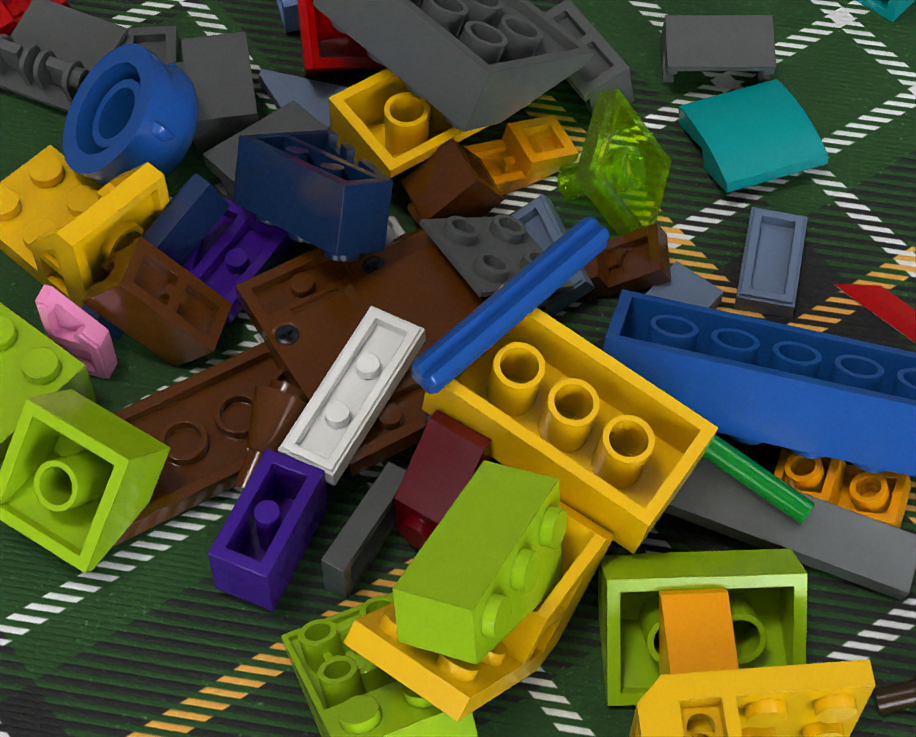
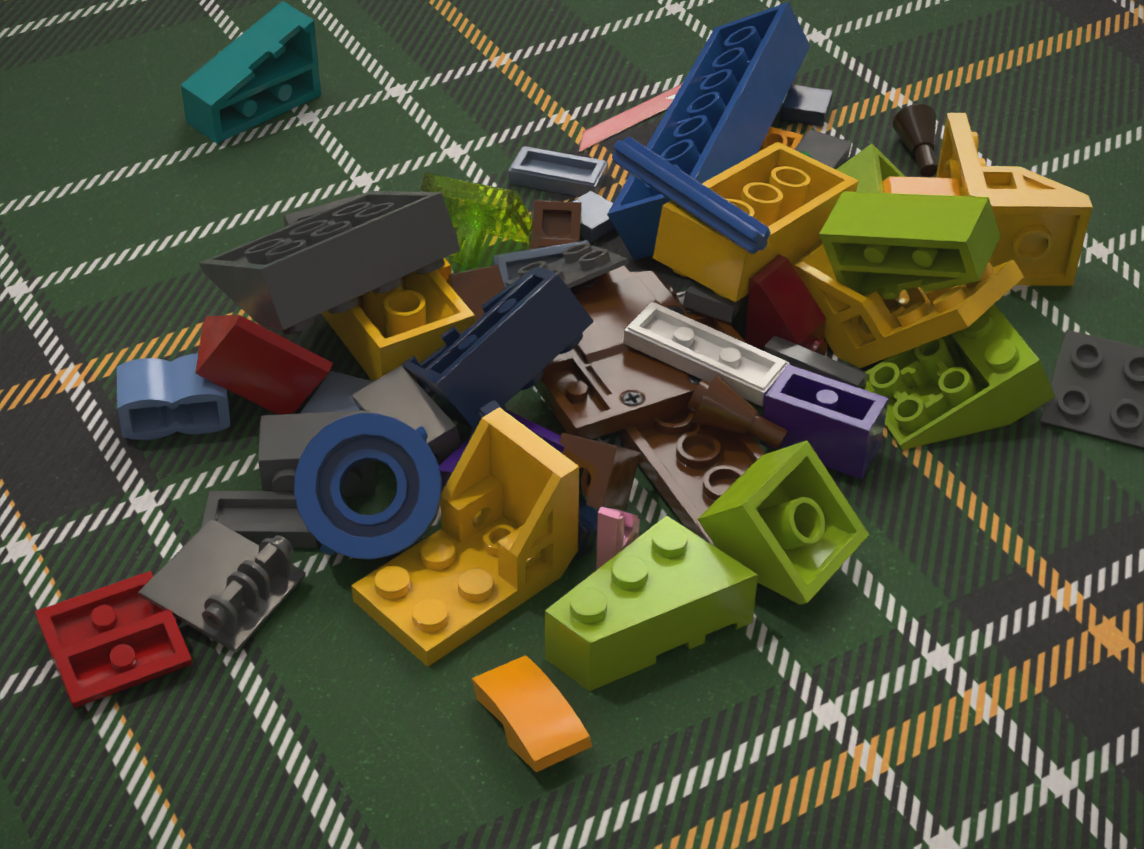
camera: 85 degrees left, 15 degrees down
(717, 44) = (344, 161): dark grey hinge -> none
(753, 135) = (434, 150): teal slope -> none

